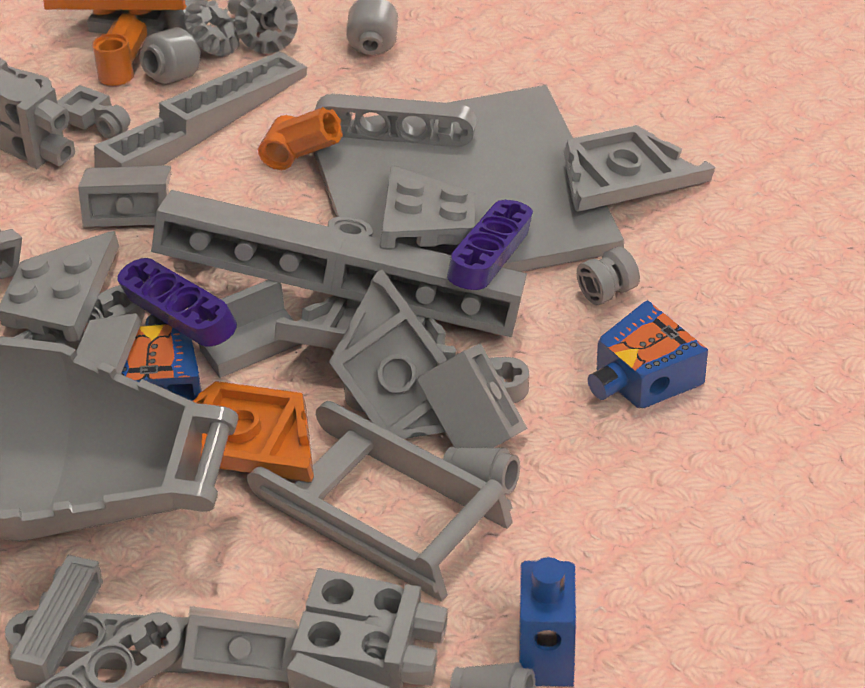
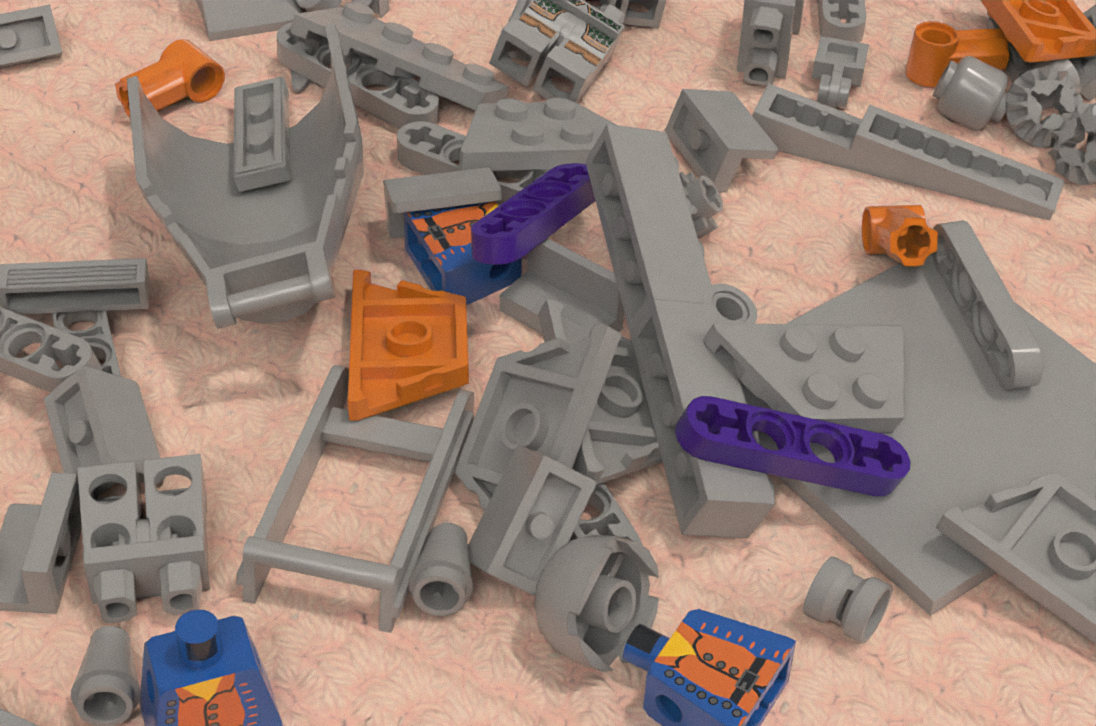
camera: 65 degrees right, 0 degrees up
(558, 391) = (595, 598): none -> light grey cylinder

